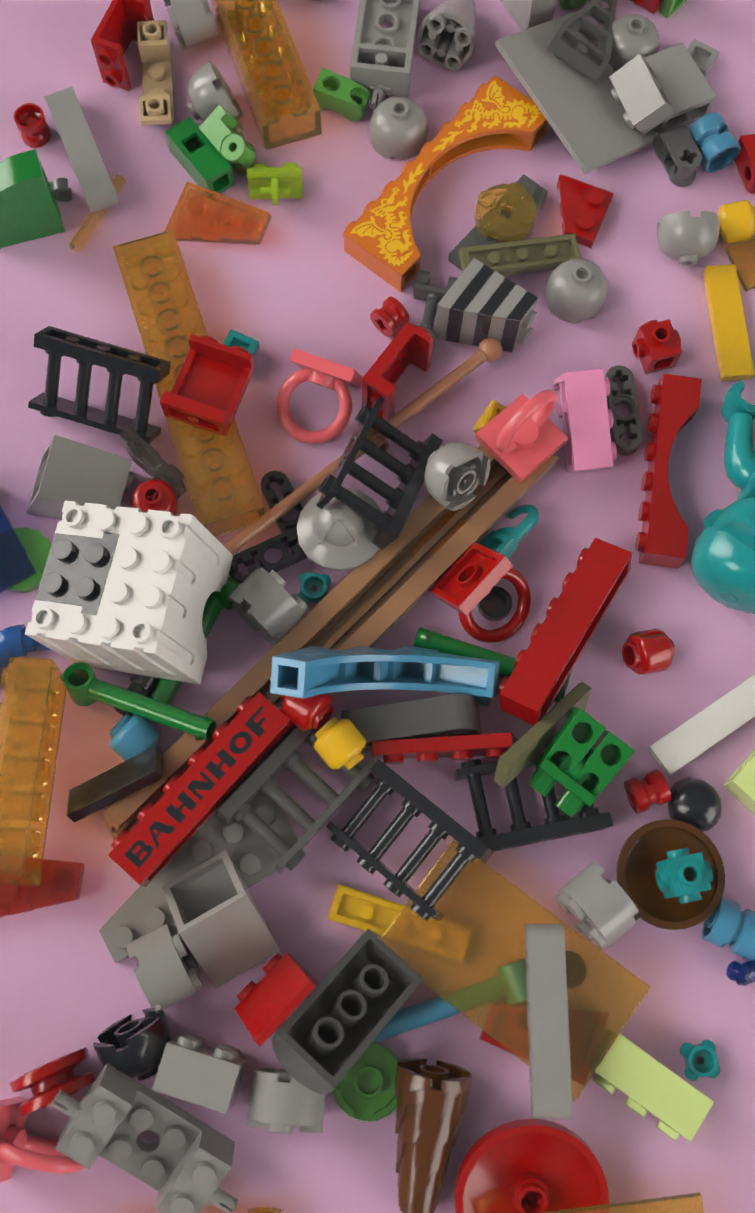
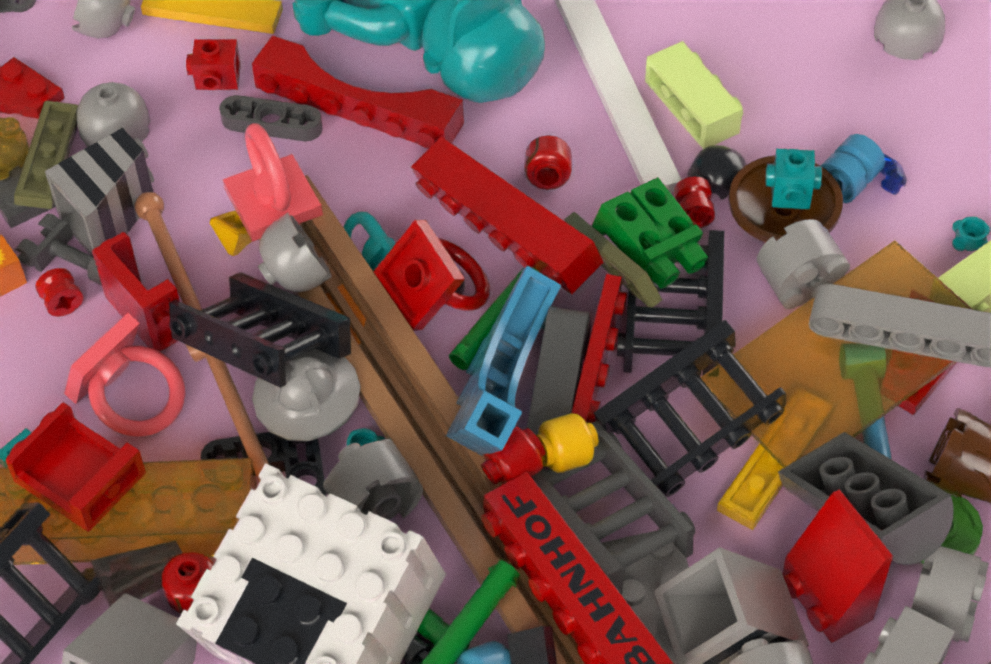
camera: 70 degrees left, 20 degrees down
(586, 420) = (307, 141): bright pink wedge -> none

